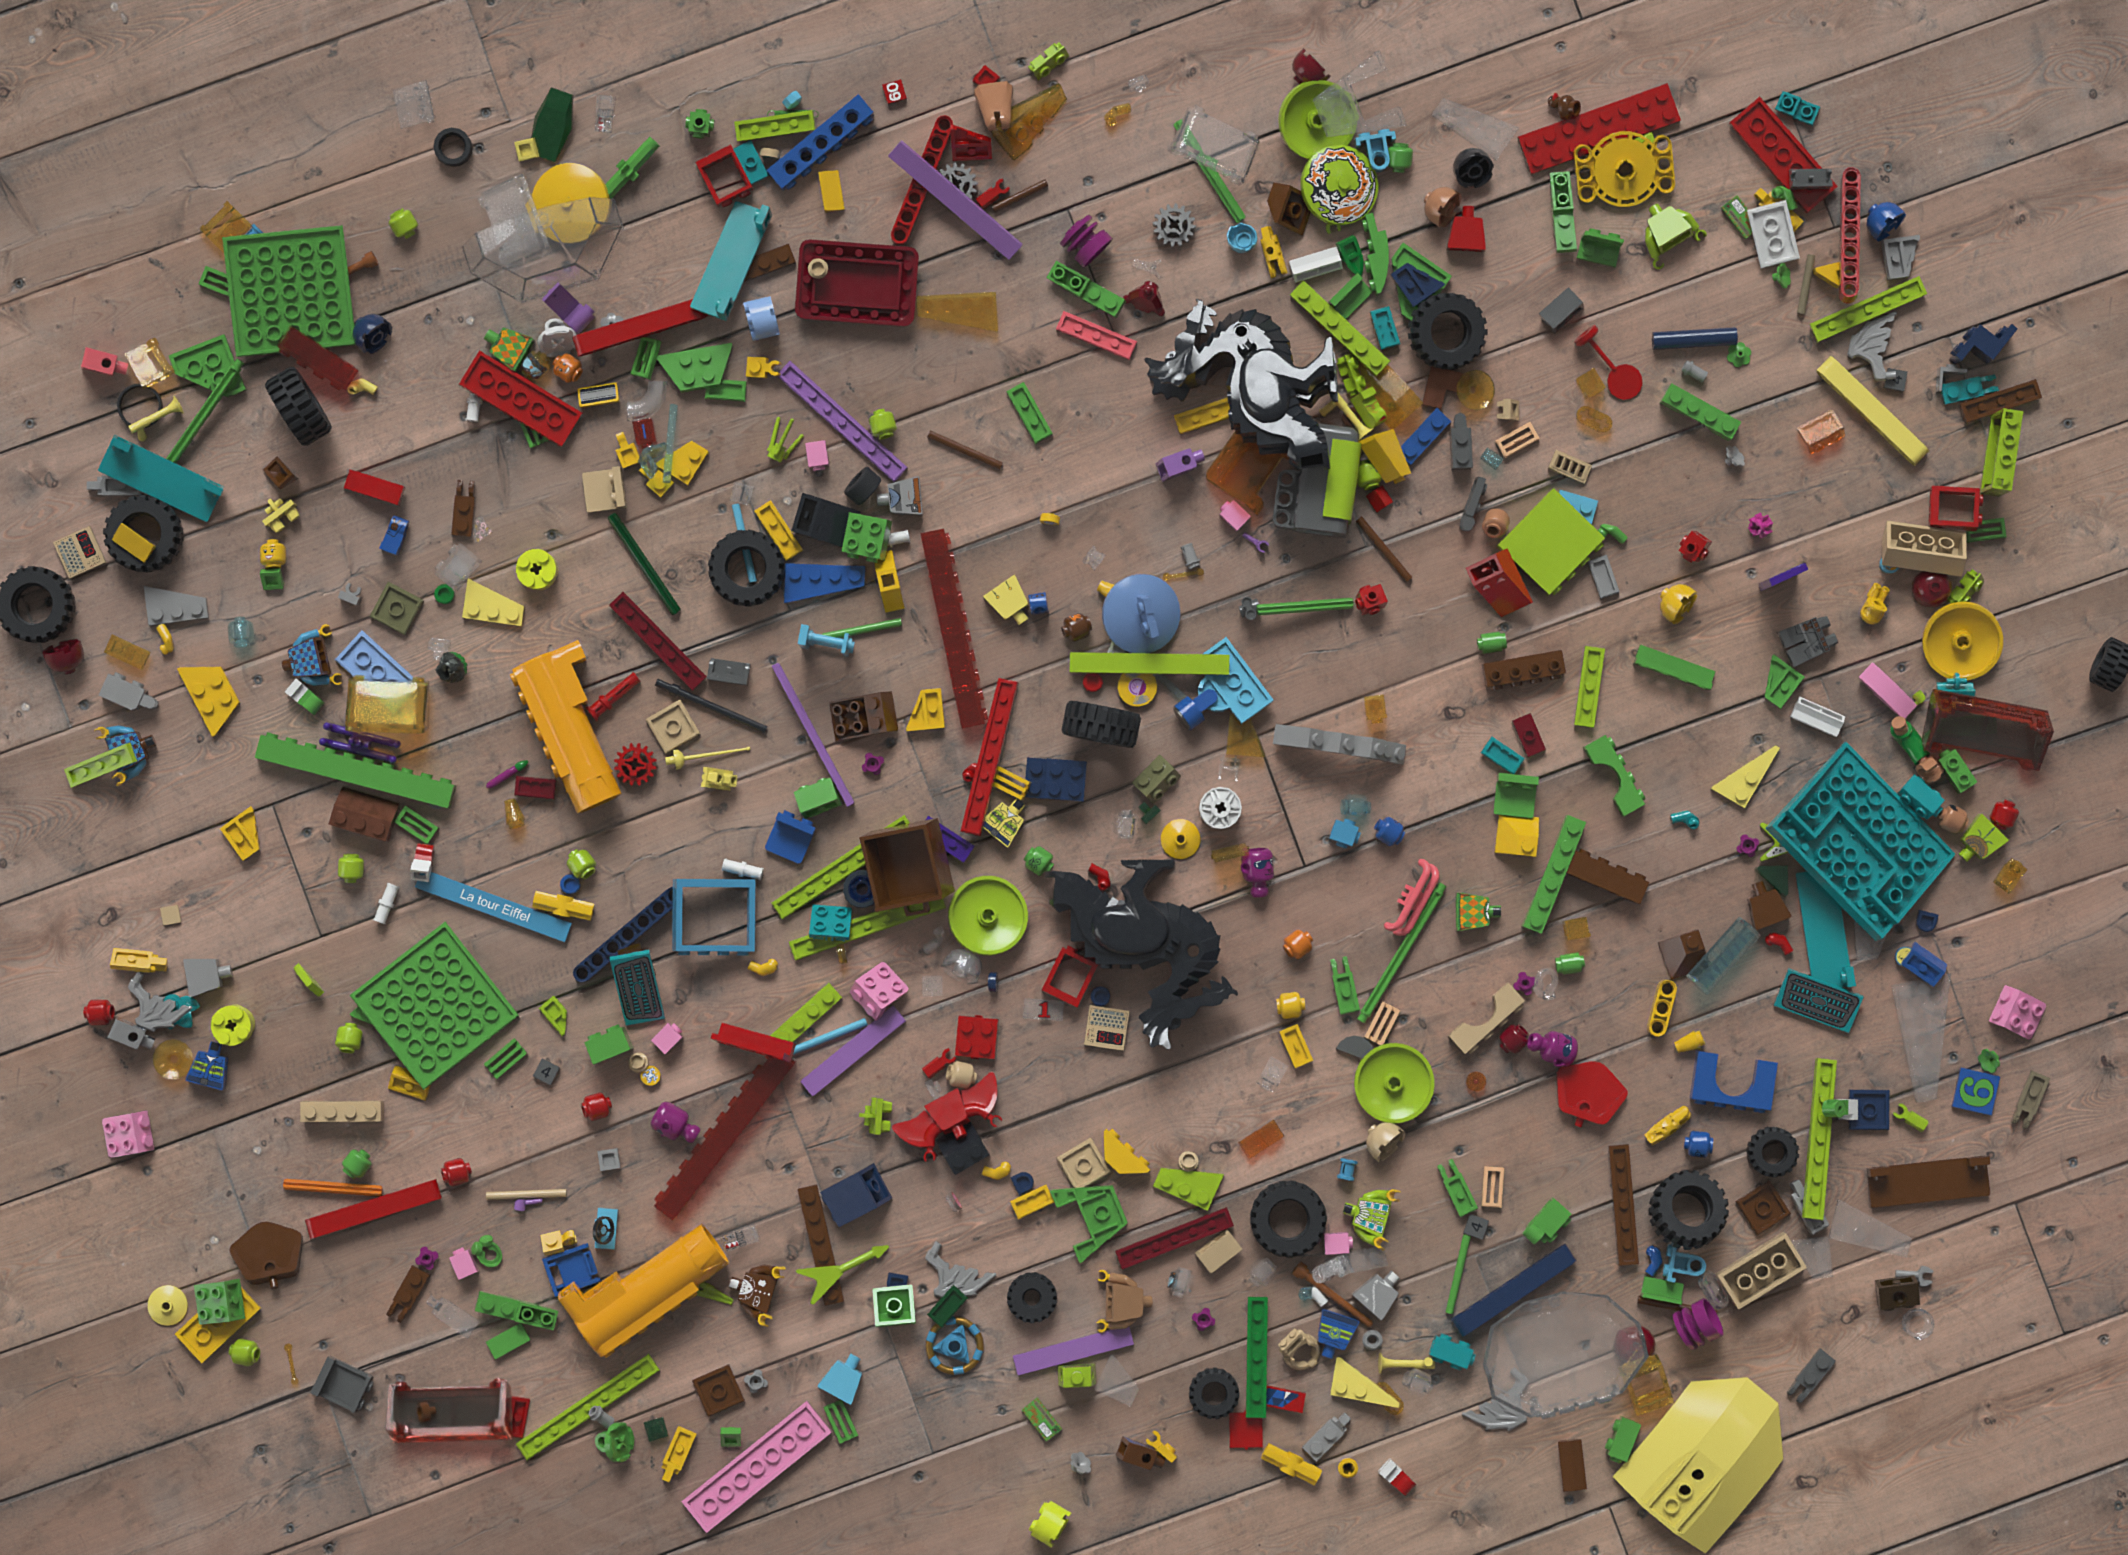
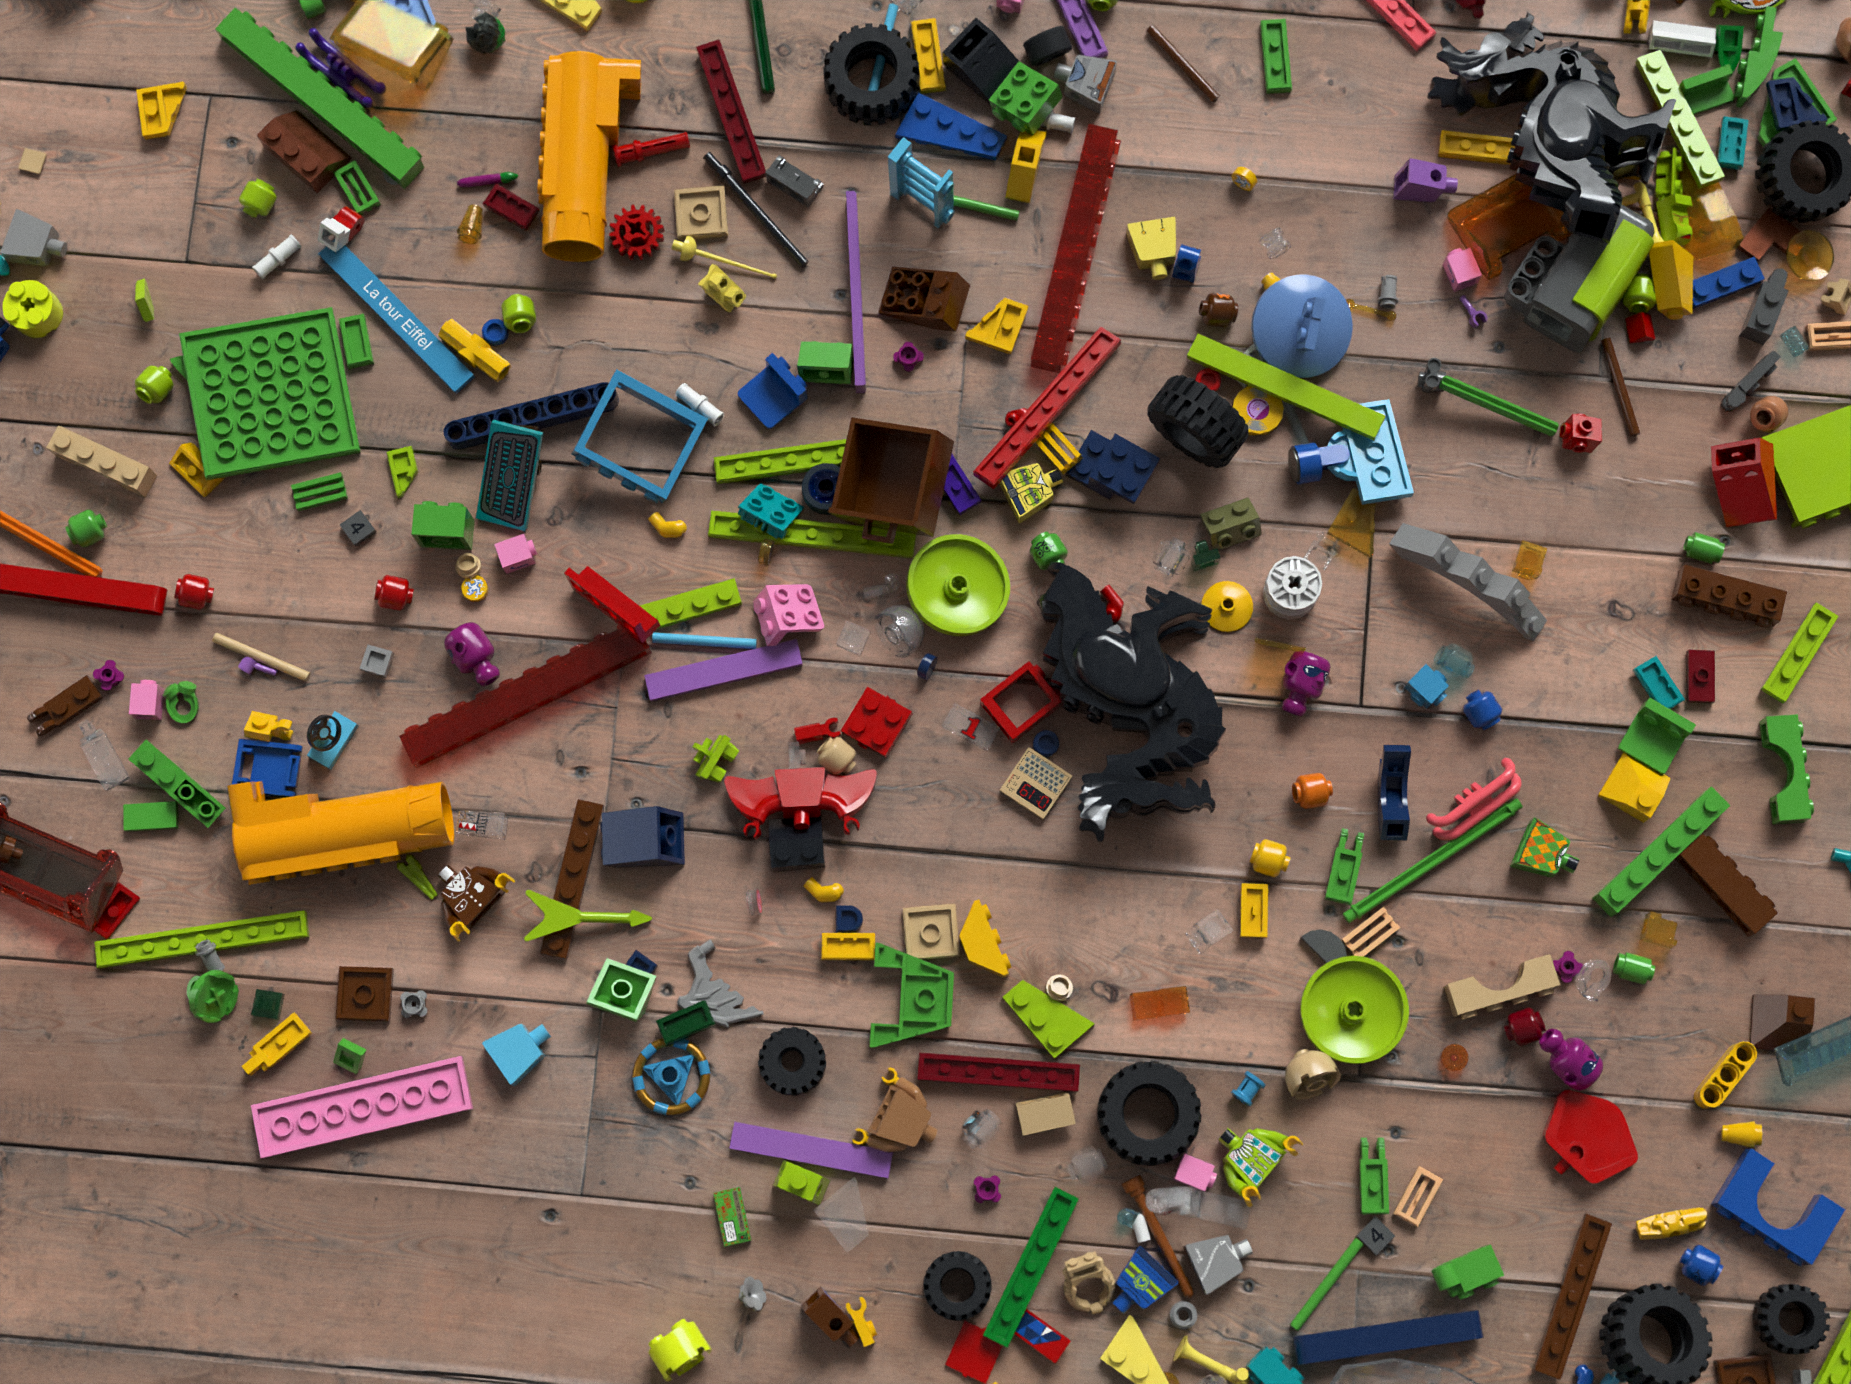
camera: 30 degrees right, 10 degrees down
(474, 937) = (356, 341): none -> bright green tile
(834, 1405) = (479, 1101): bright green tile -> none
(1355, 921) = (1392, 792): none -> dark blue arch

